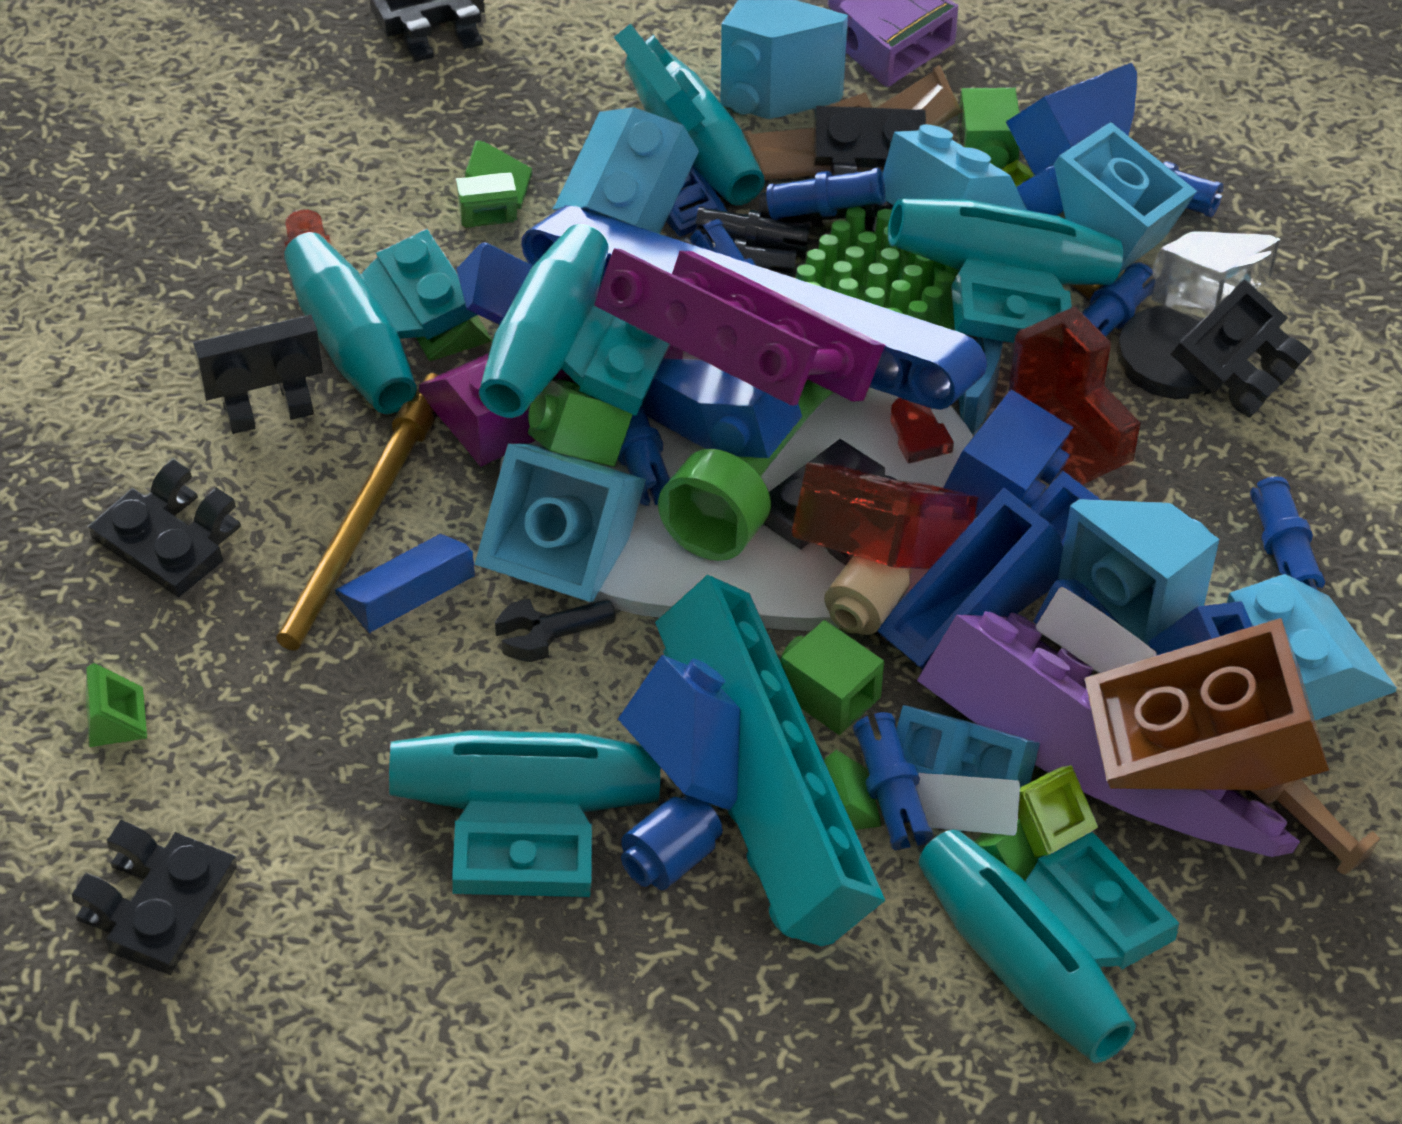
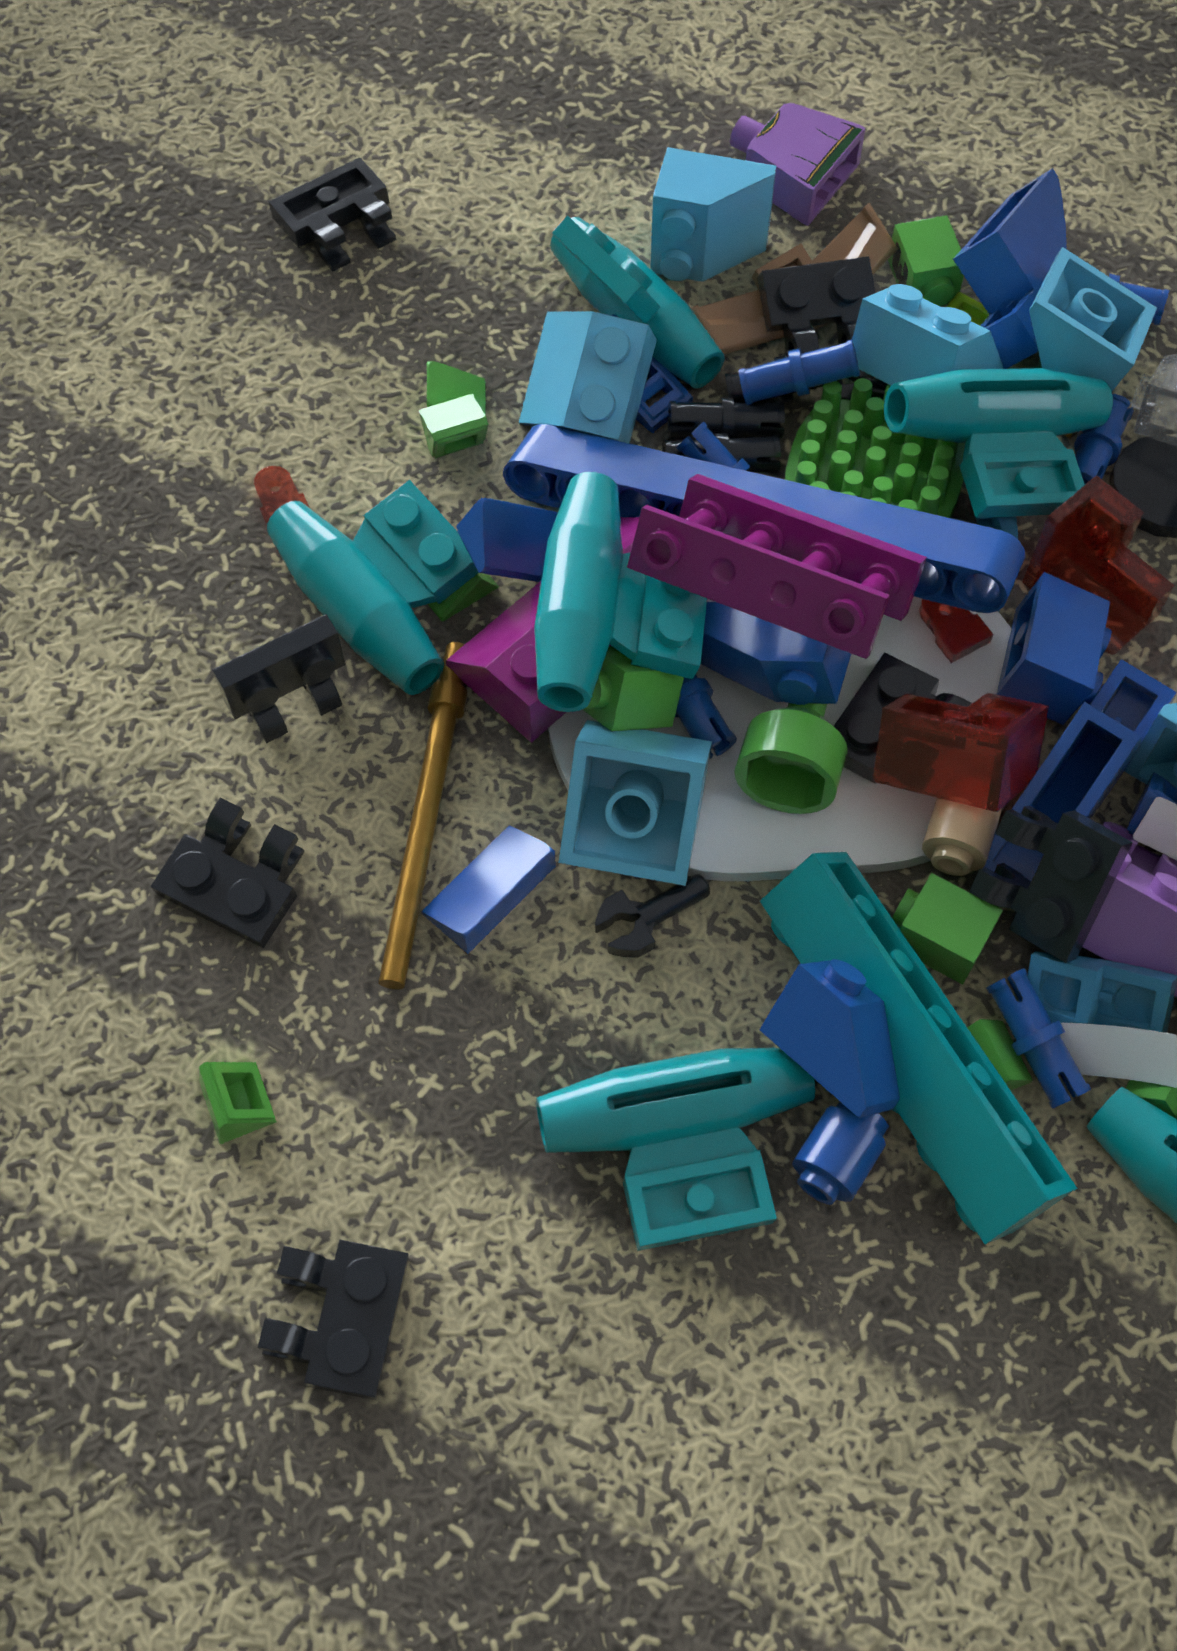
camera: 10 degrees left, 15 degrees up
(946, 640) = (1069, 884): none -> black plate

